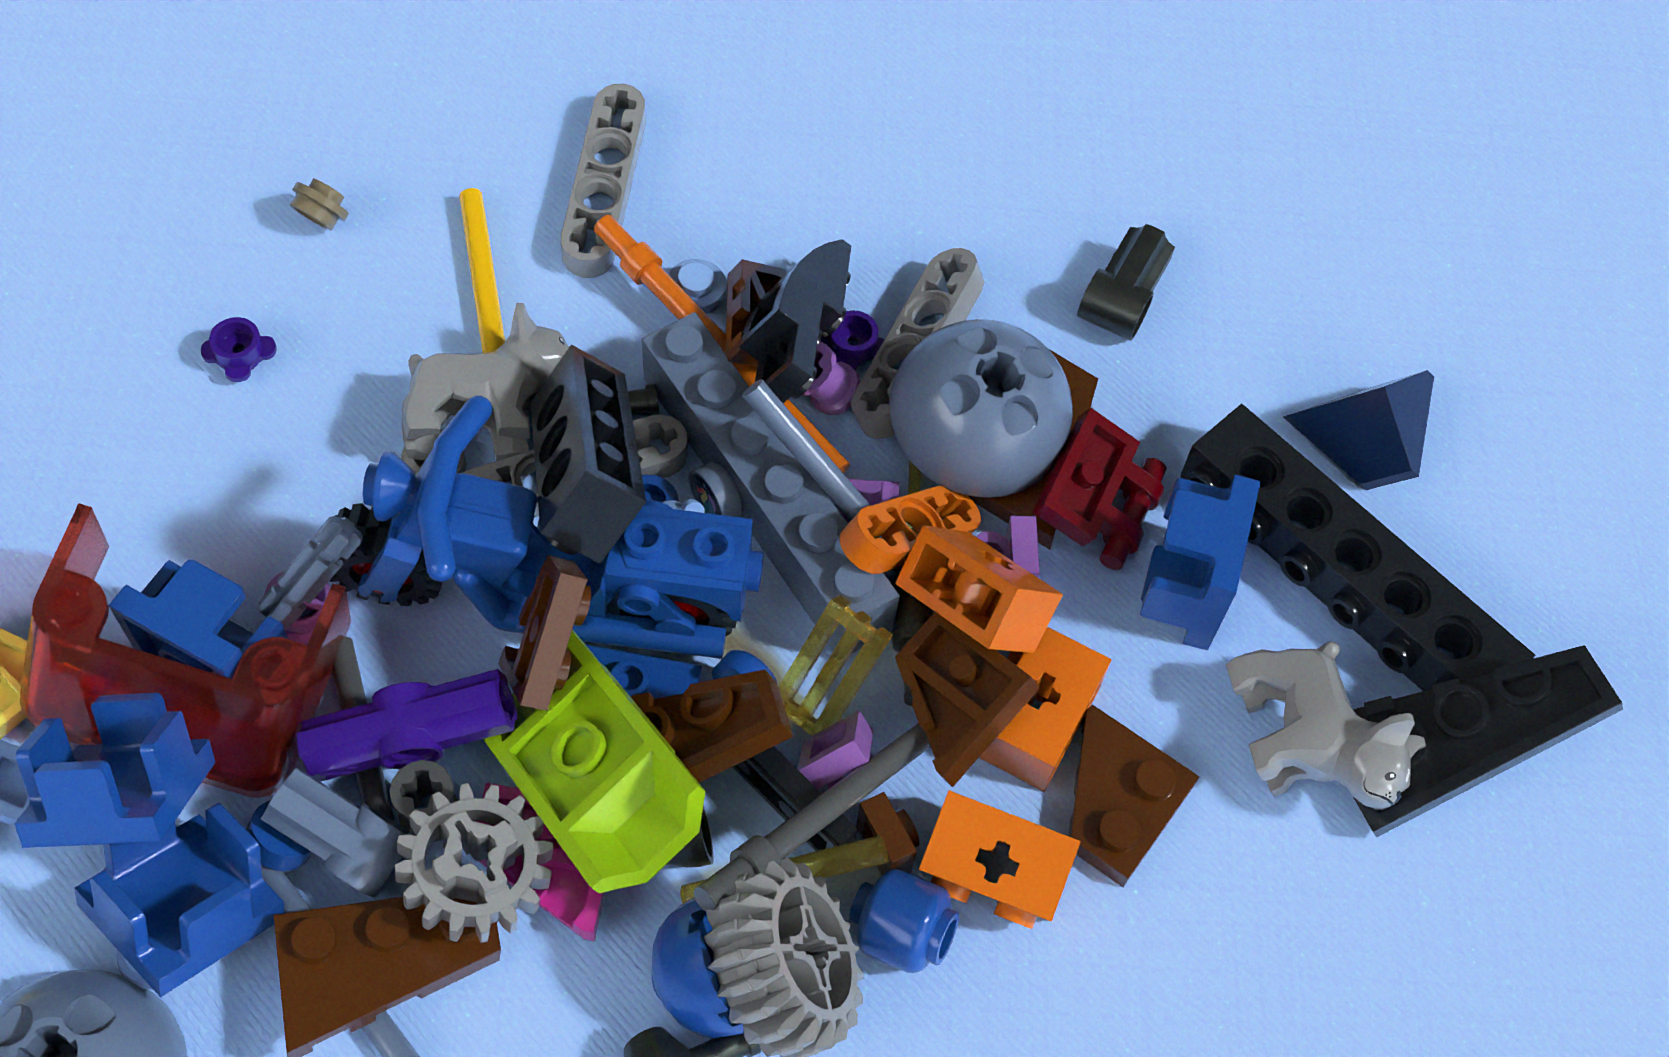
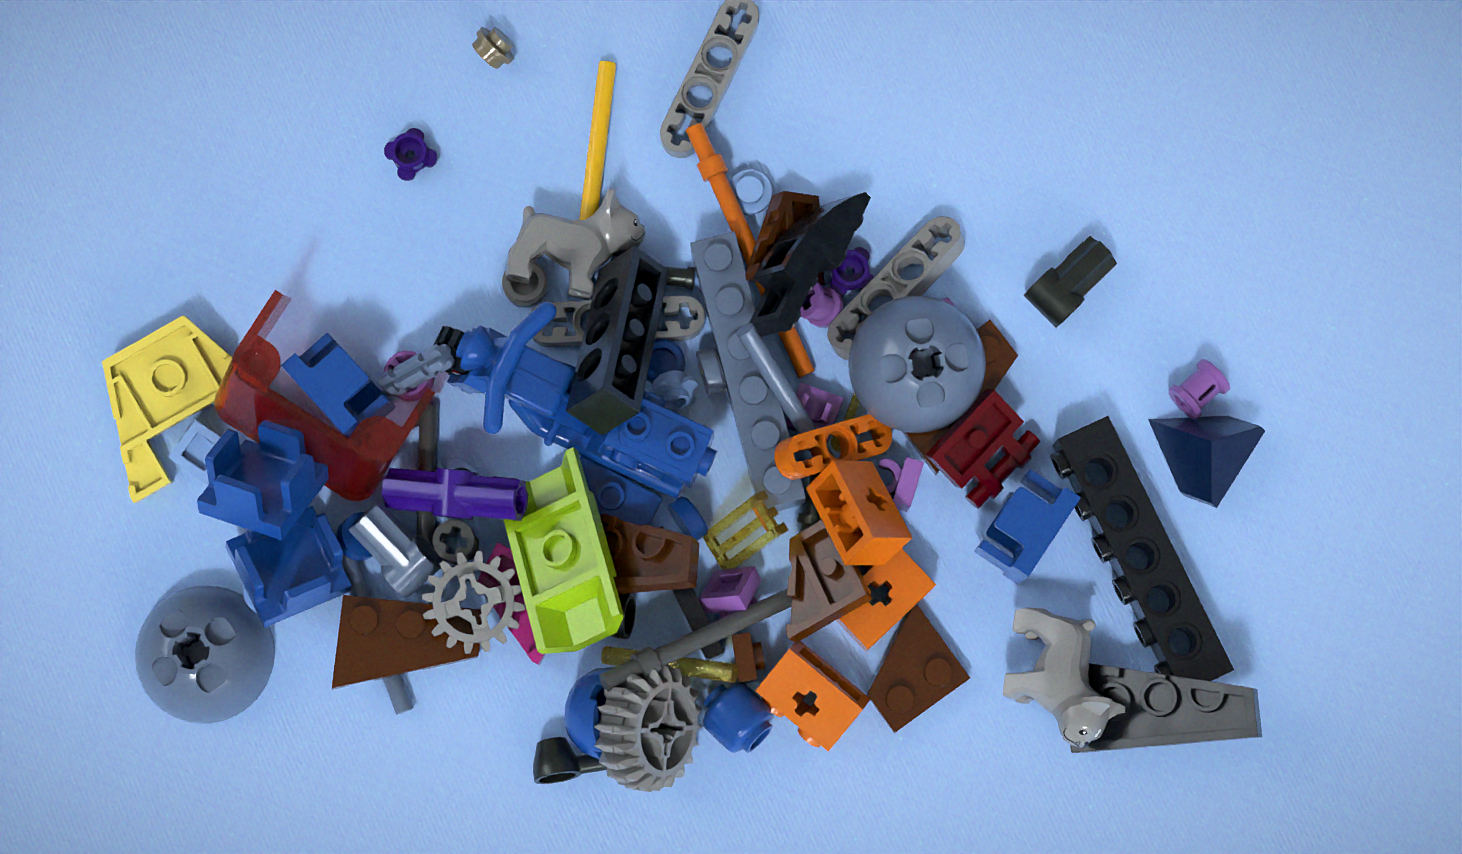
camera: 25 degrees right, 20 degrees up
(549, 613) = (551, 471): reddish brown wing -> none
(1331, 358) = (1199, 389): none -> medium lavender bush

